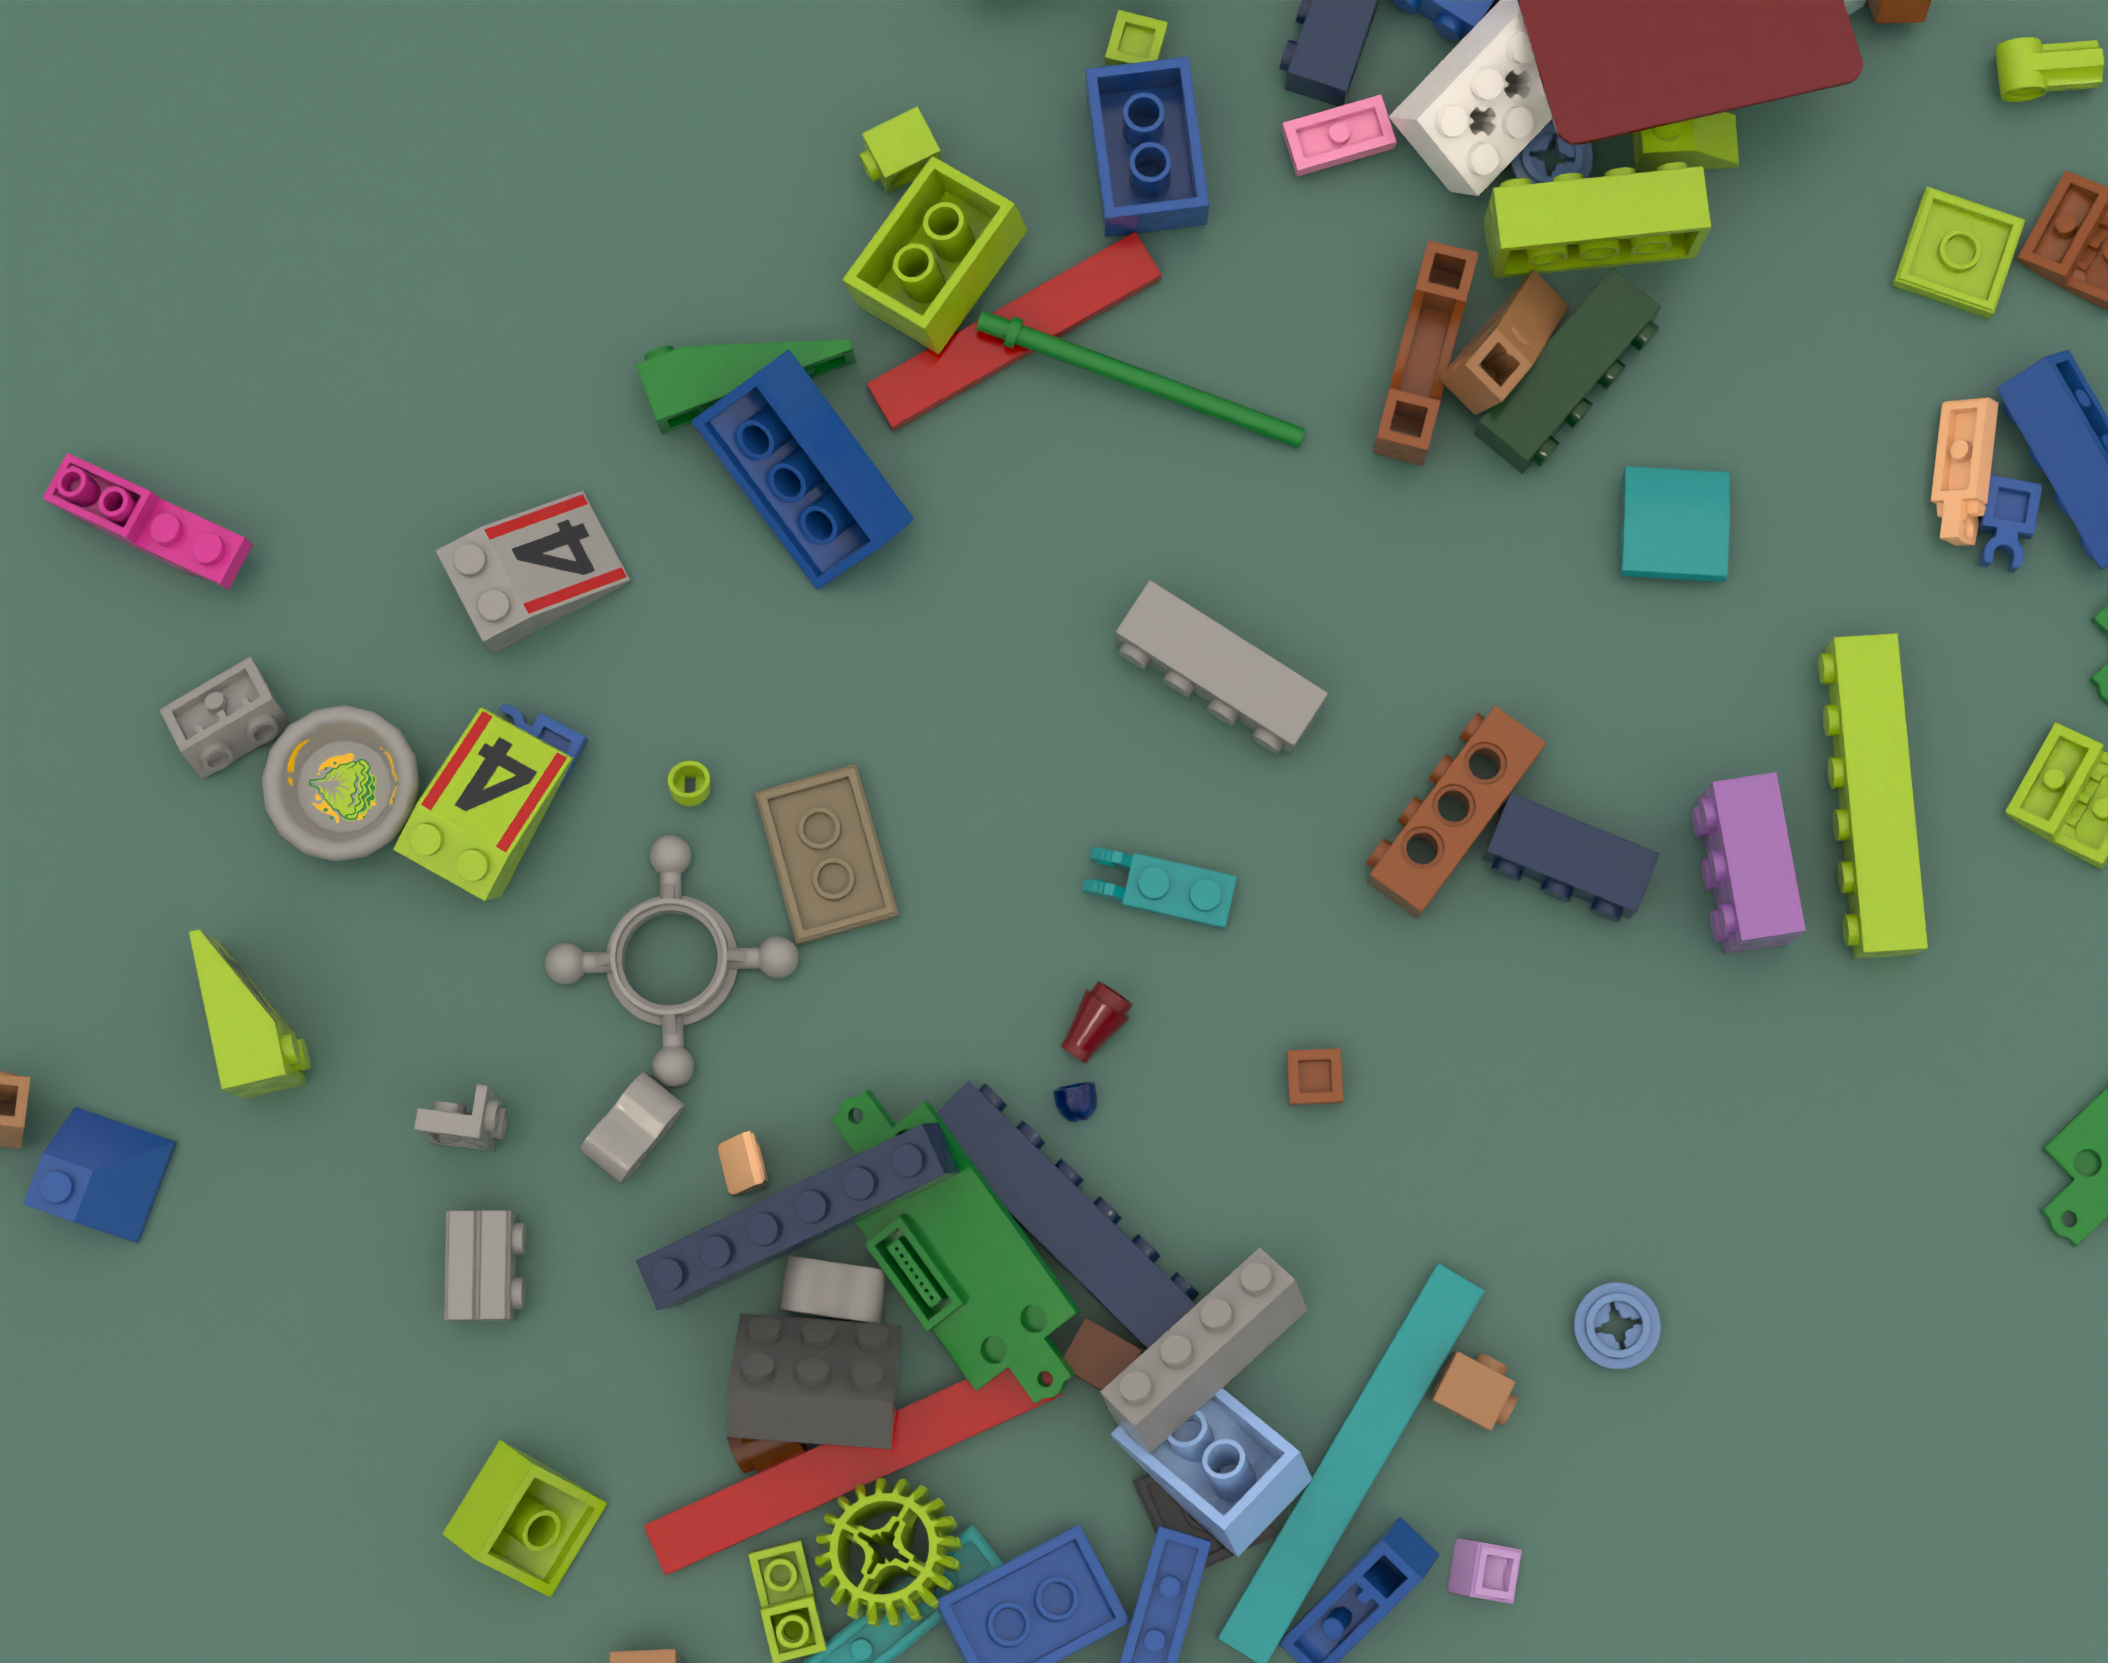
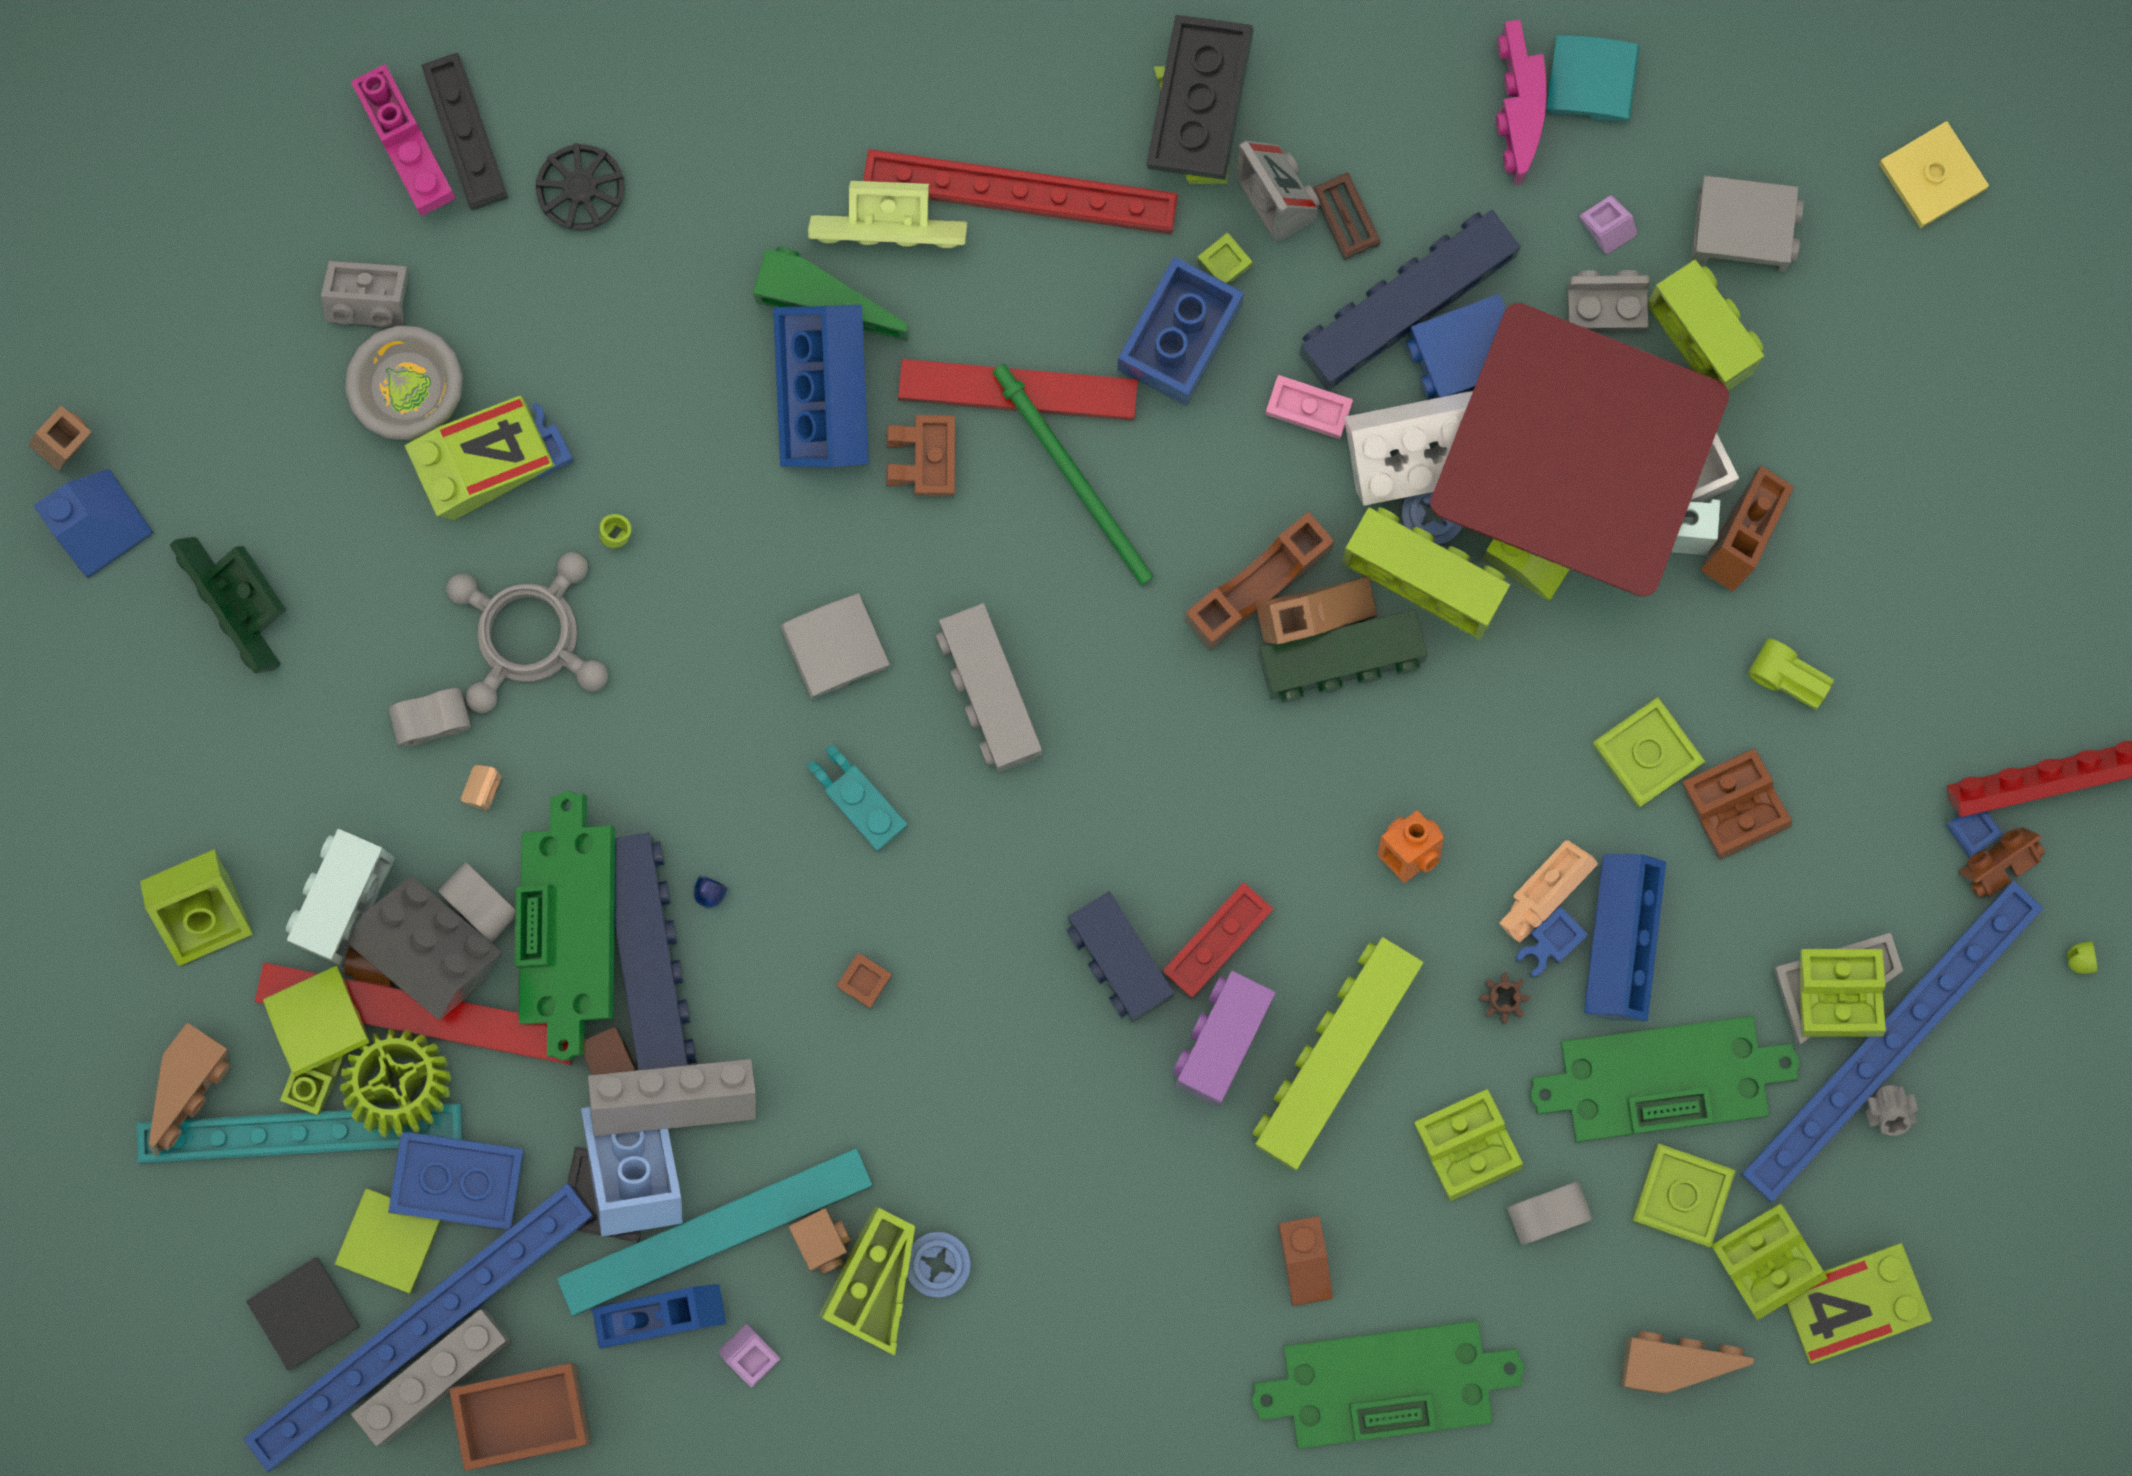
camera: 35 degrees right, 0 degrees up
(207, 467) = (464, 131): none -> black tile
(249, 1037) = (239, 496): lime slope -> none
(324, 1145) = (237, 597): none -> dark green bracket
(378, 439) = (579, 186): none -> black wheel
(453, 1126) = (337, 650): light grey bracket -> none
(483, 1265) = (280, 737): light grey brick -> none
(532, 569) = (614, 332): light grey slope -> none
(678, 1393) = (338, 895): none -> light aqua brick
(739, 239) = (888, 215): none -> yellowish green bracket
(751, 1547) = (316, 1021): none -> lime slope
(798, 1216) = (486, 840): dark blue brick -> none
(826, 854) = (668, 634): dark tan tile -> none
(838, 128) = (1028, 191): none -> red tile
(898, 150) = (1027, 227): lime brick -> none
(935, 254) = (999, 308): lime brick -> none
(975, 461) = (934, 455): none -> dark orange plate
(1018, 740) = (834, 645): none -> light grey slope
(1096, 1020) = (757, 851): dark red cone -> none
(1512, 751) = (1015, 909): dark orange brick -> none
(1564, 1394) = (872, 1281): none -> lime wedge
(1658, 766) = (1217, 940): none -> red plate
(1675, 524) = (1340, 797): teal slope -> none
(1791, 521) = (1411, 846): none -> orange brick
(2001, 1038) = (1305, 1260): none -> dark orange slope
(2015, 606) = (1515, 1000): none -> reddish brown gear

